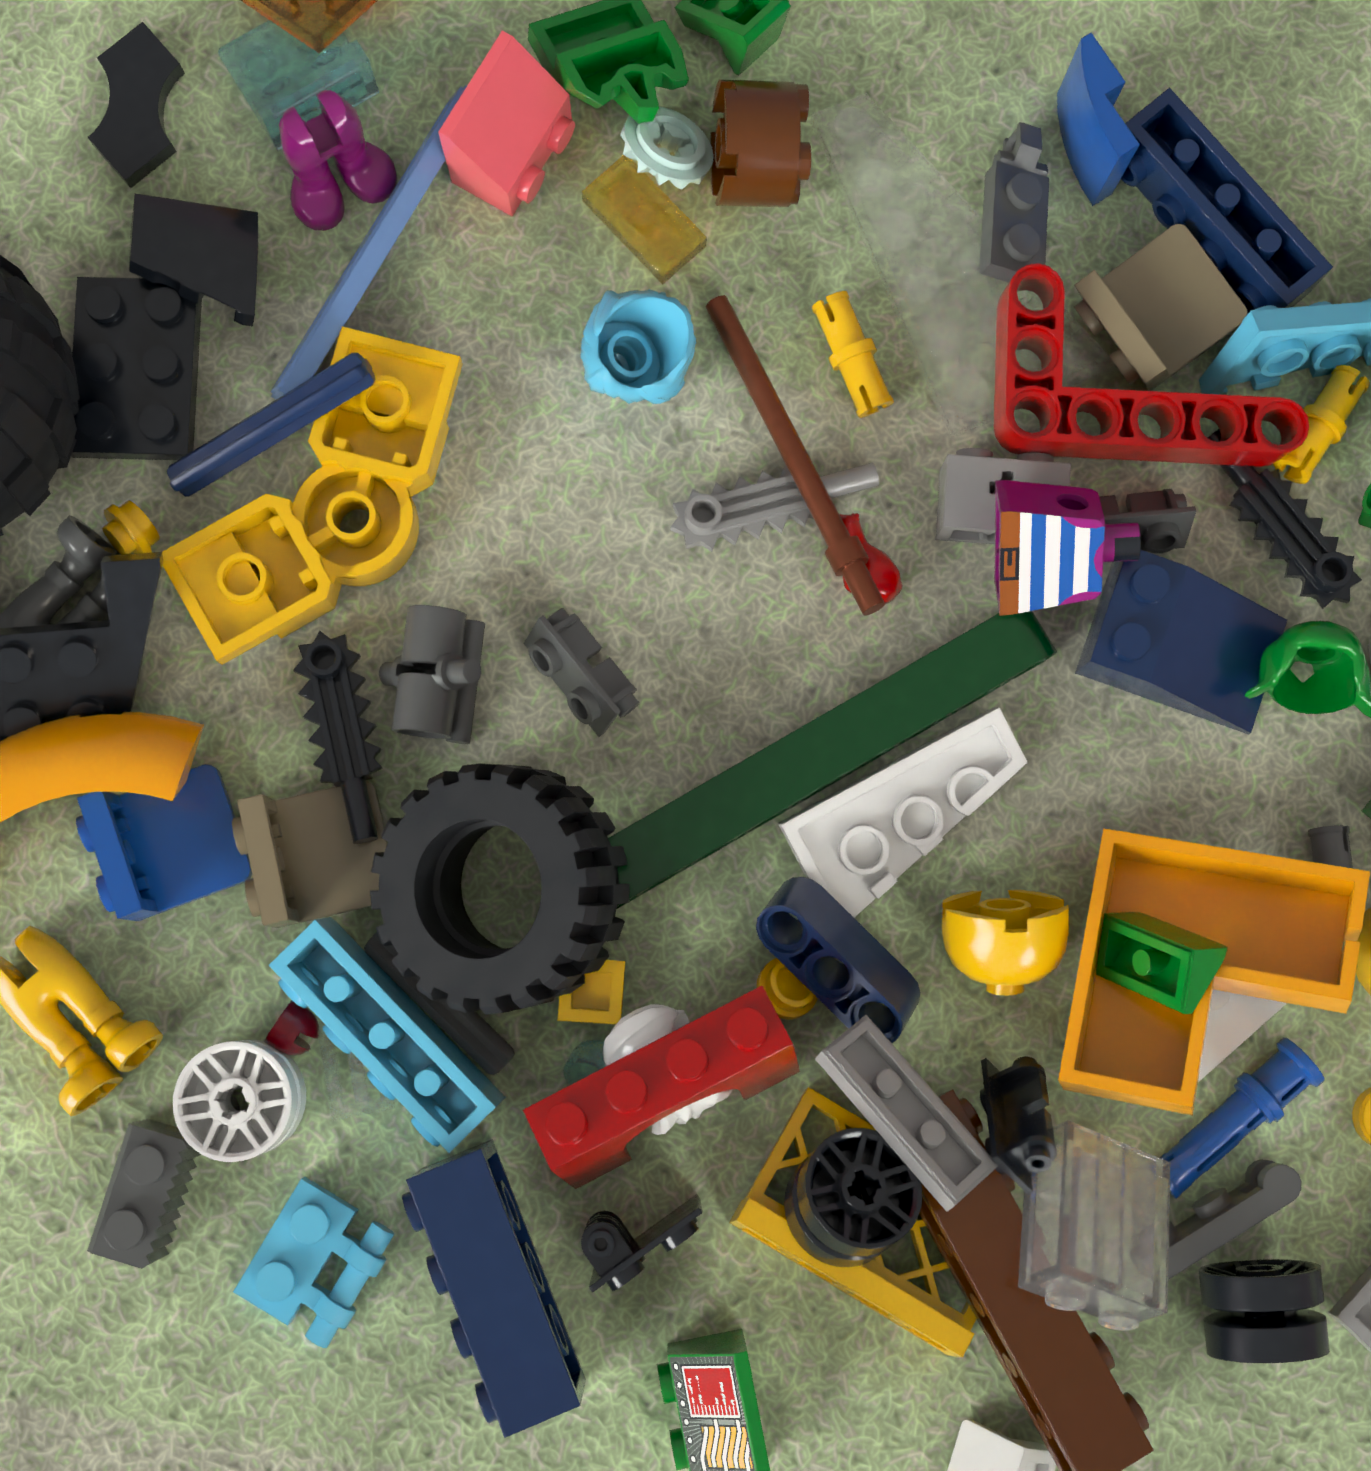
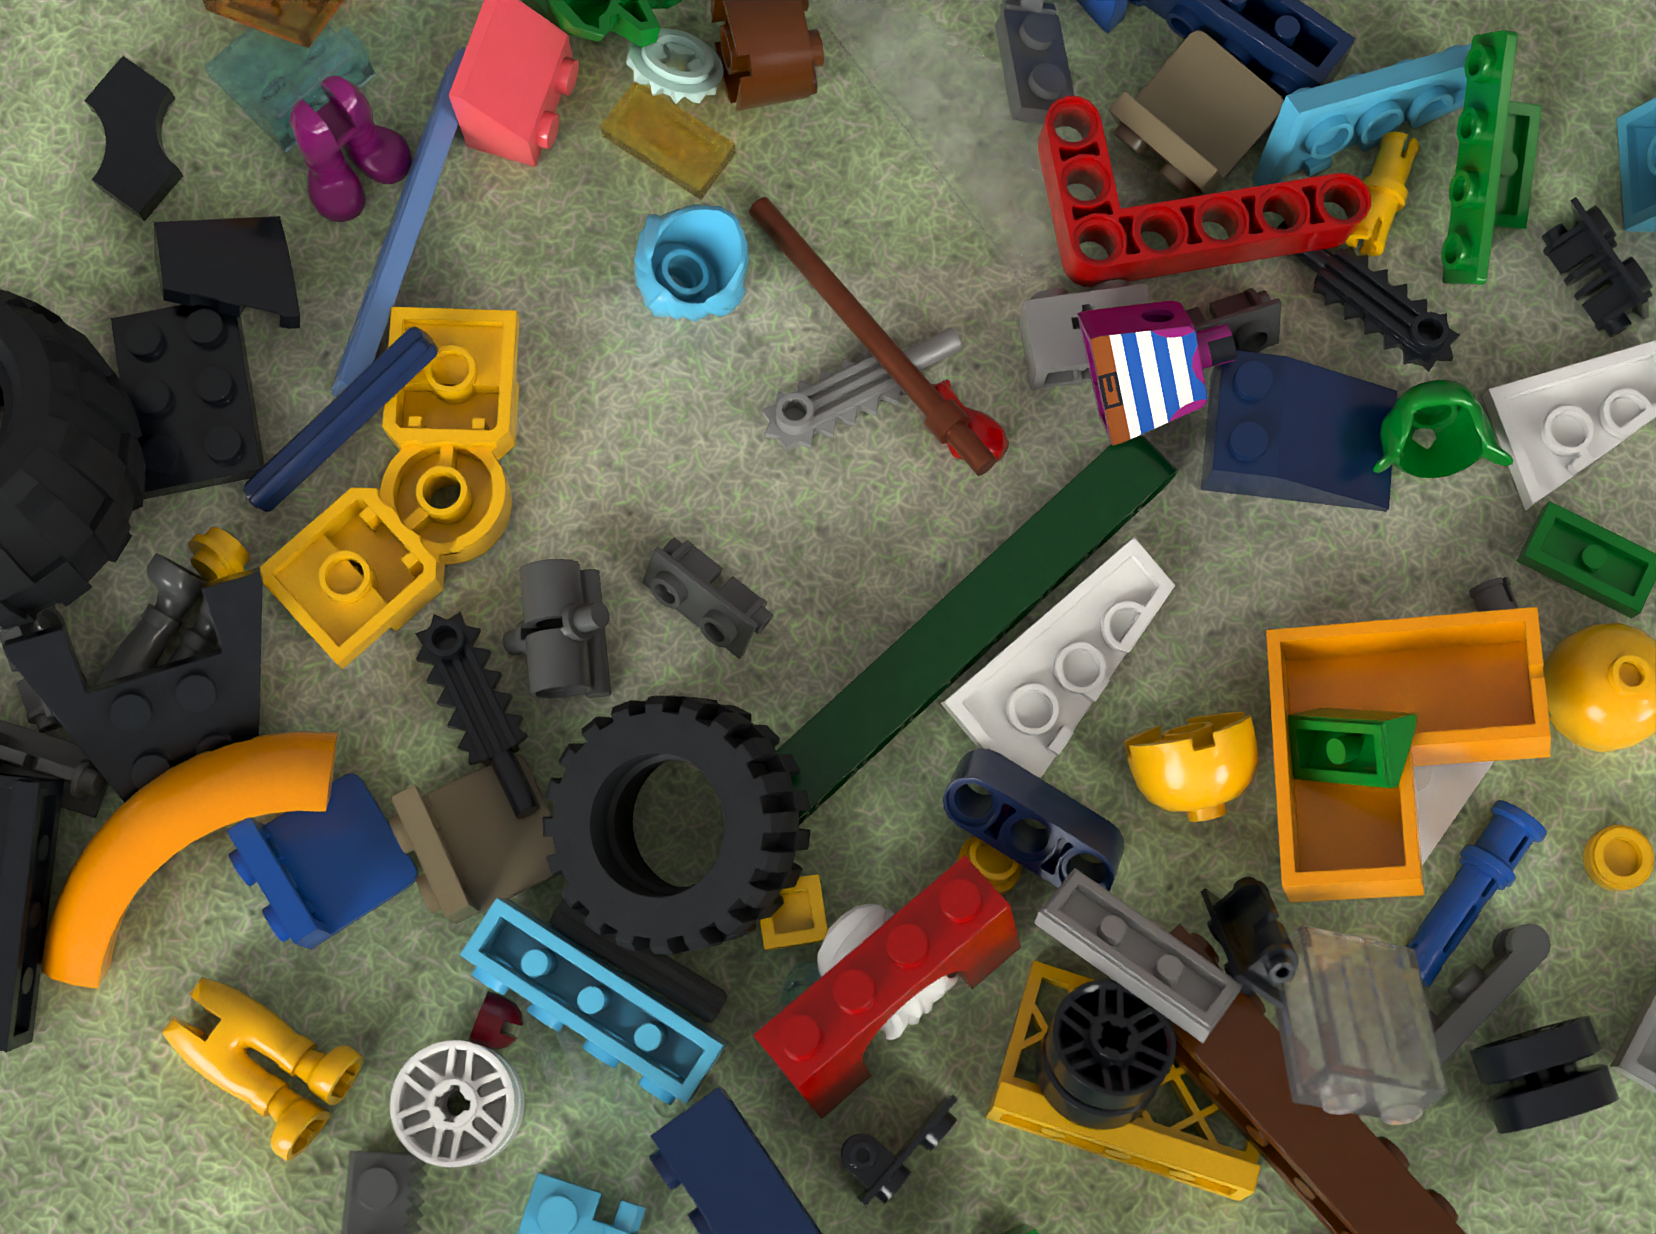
camera: 10 degrees left, 5 degrees down
(852, 354) = (906, 226): yellow pin -> none

